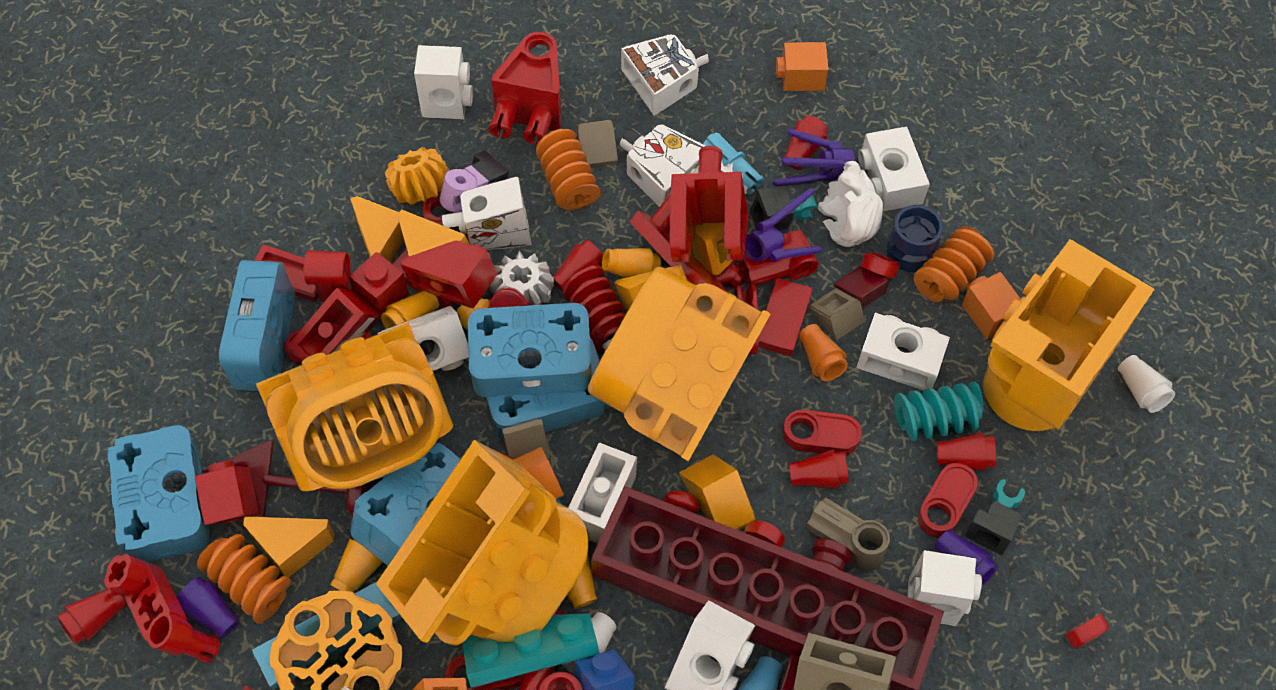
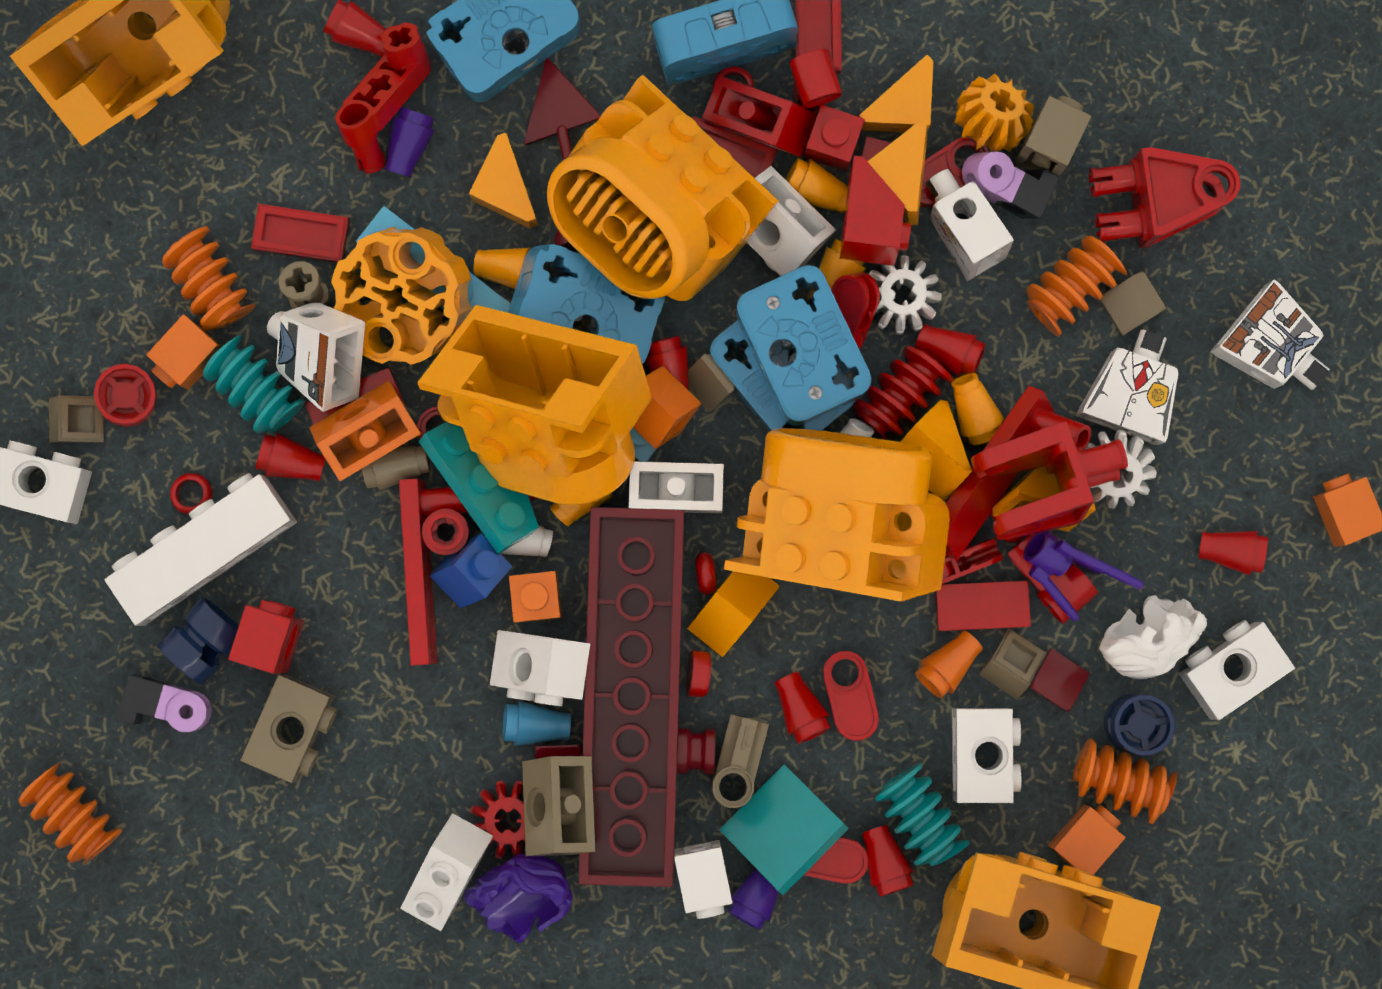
camera: 70 degrees right, 25 degrees up
(226, 493) = (525, 100): red brick -> none
(244, 576) = (451, 162): orange piece -> none
(442, 82) = (1132, 85): white brick -> none
(454, 134) = (1053, 135): none -> dark tan brick
(648, 644) = (535, 596): none -> orange brick
(730, 155) = (1171, 472): medium azure axle -> none
(770, 201) = (1120, 547): pearl dark grey piece -> none
(830, 160) = (1214, 596): dark purple plant -> none
(880, 264) = (1091, 694): red tile -> none
(919, 514) = (783, 829): none -> teal tile
(997, 525) = (811, 917): pearl dark grey piece -> none

